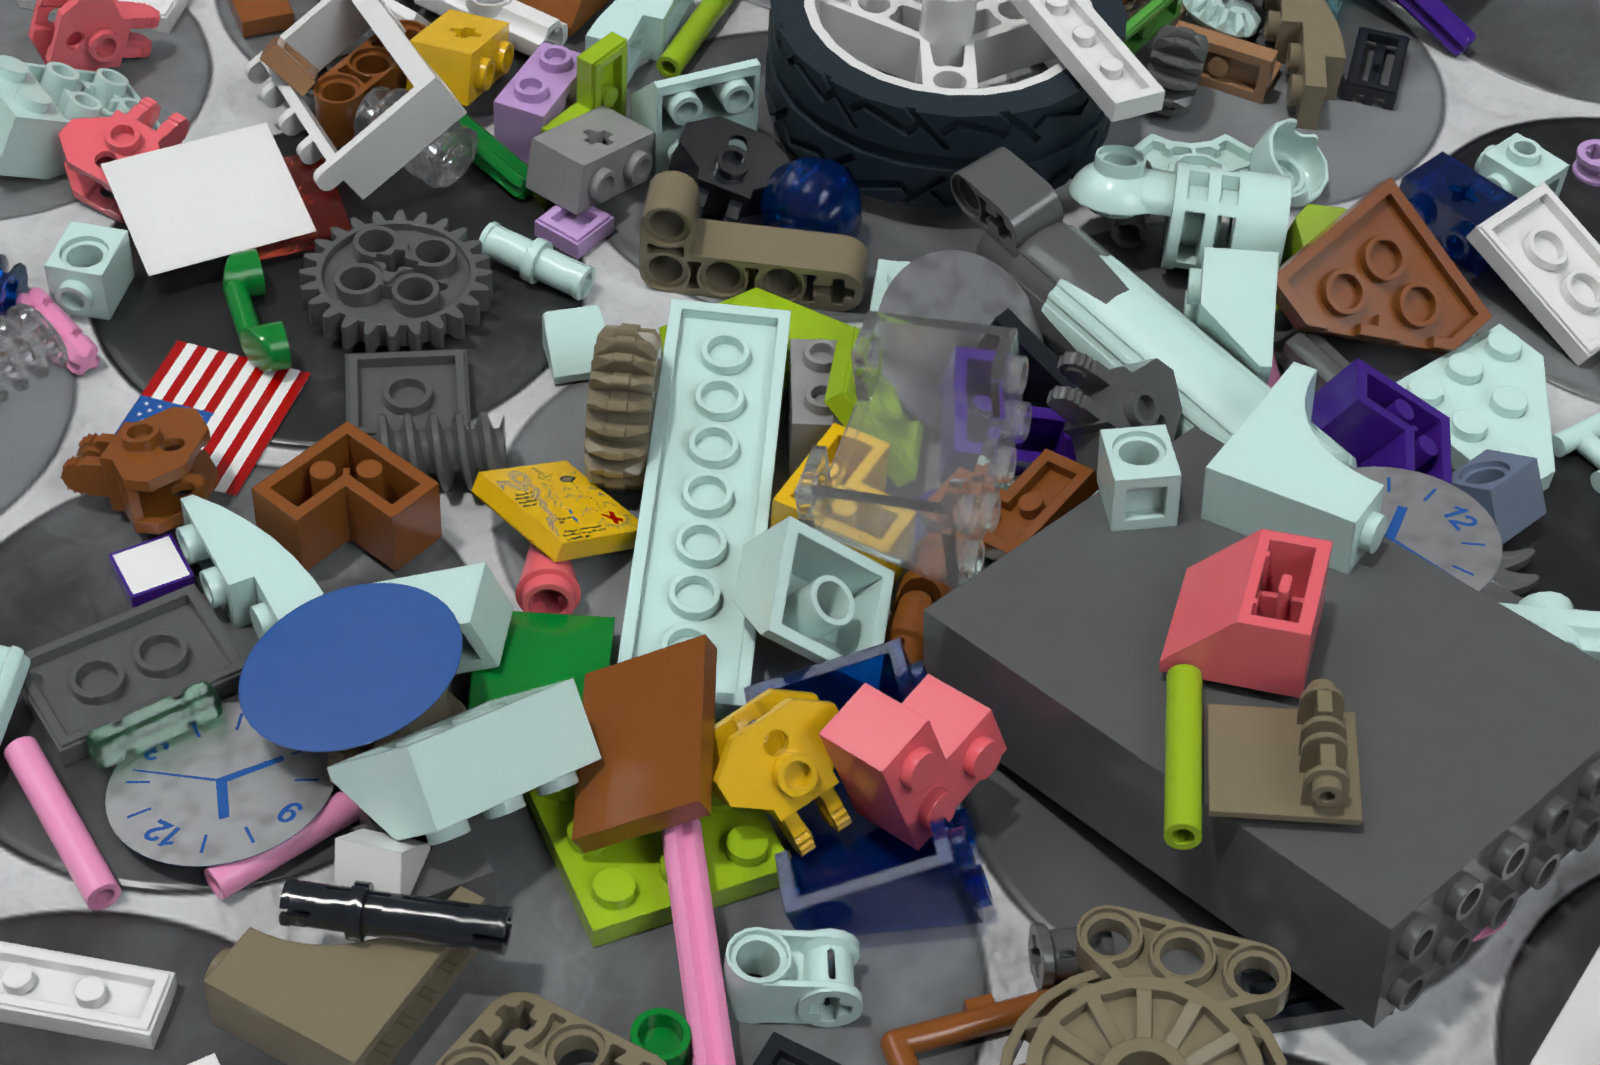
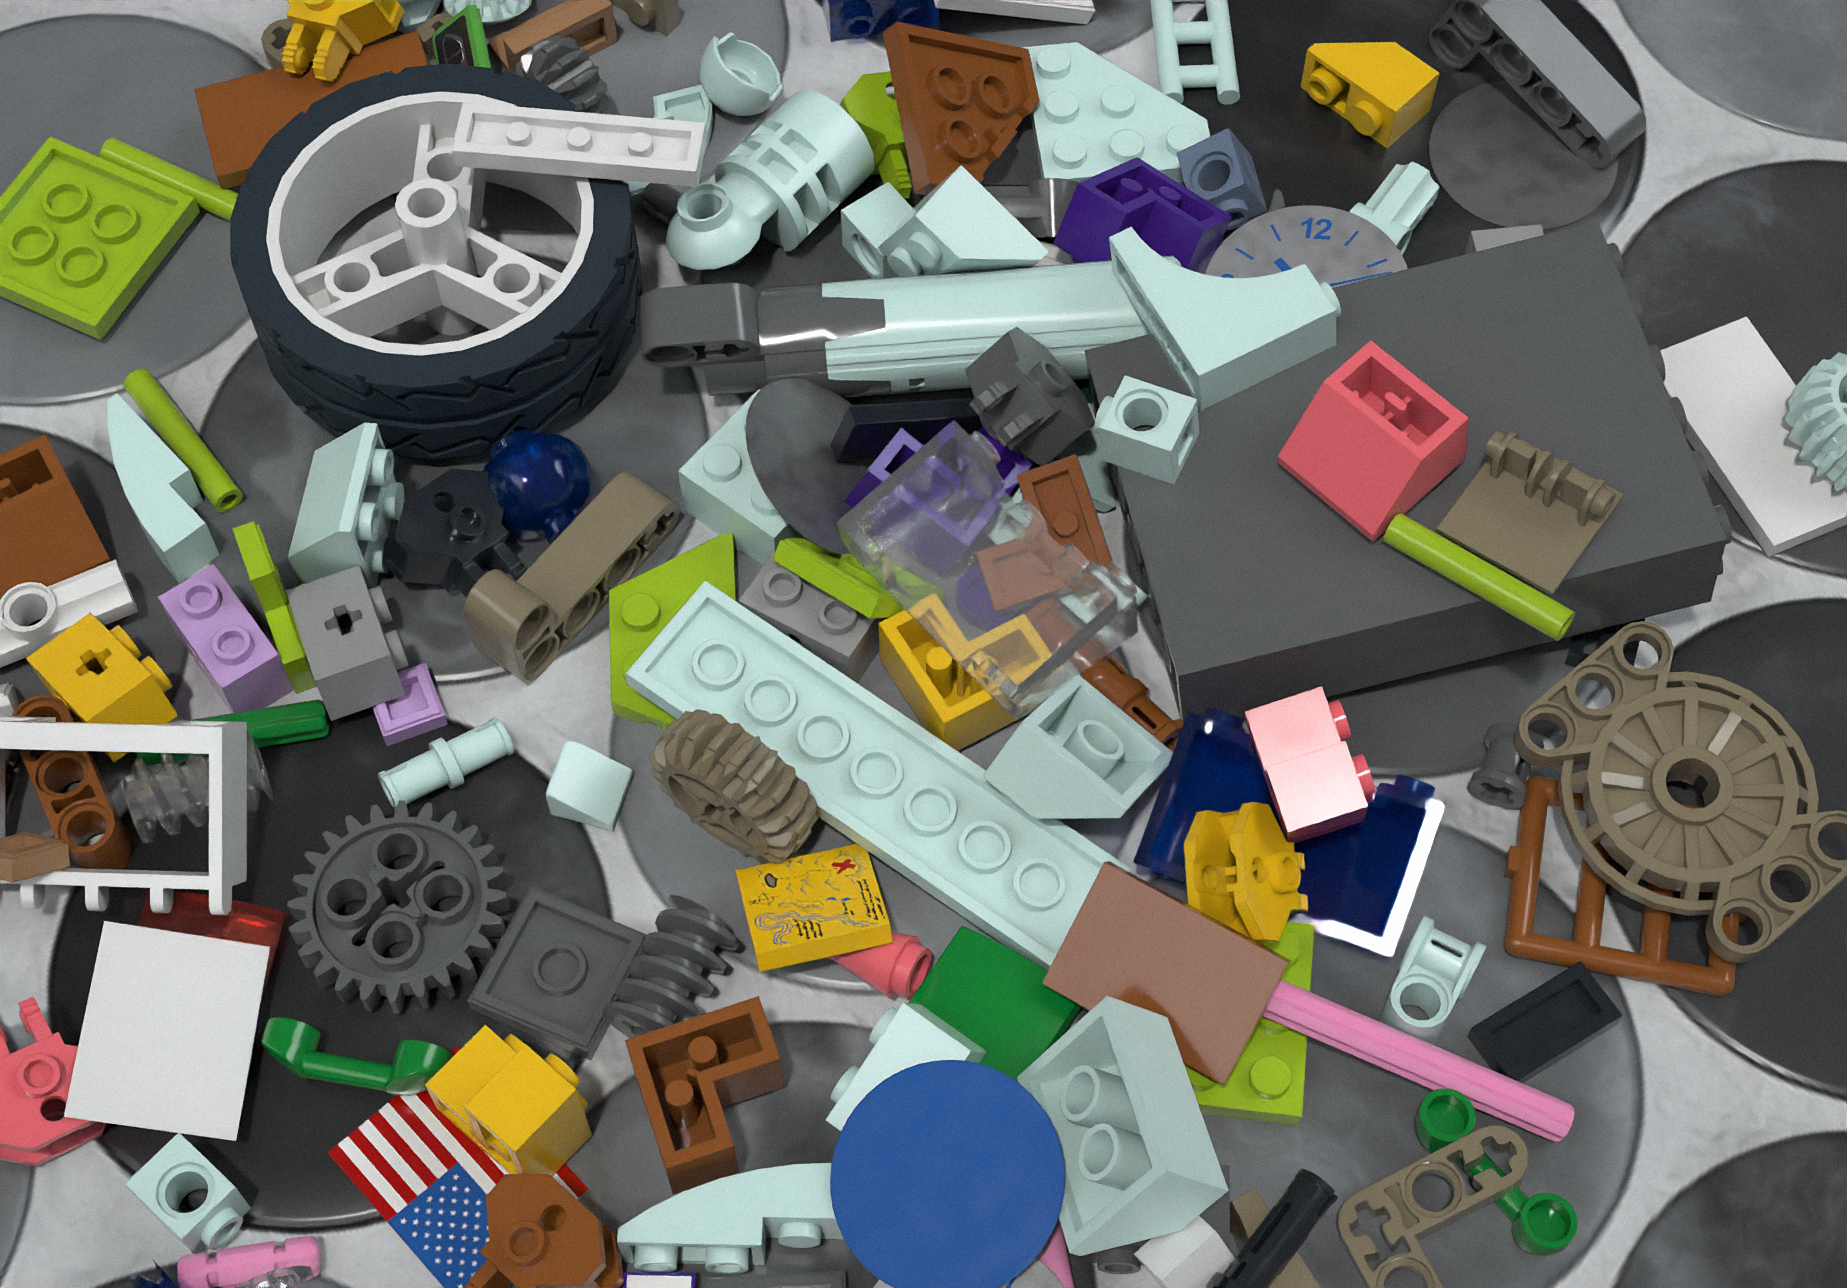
camera: 55 degrees left, 15 degrees up
(258, 401) = (513, 1103): none -> yellow brick

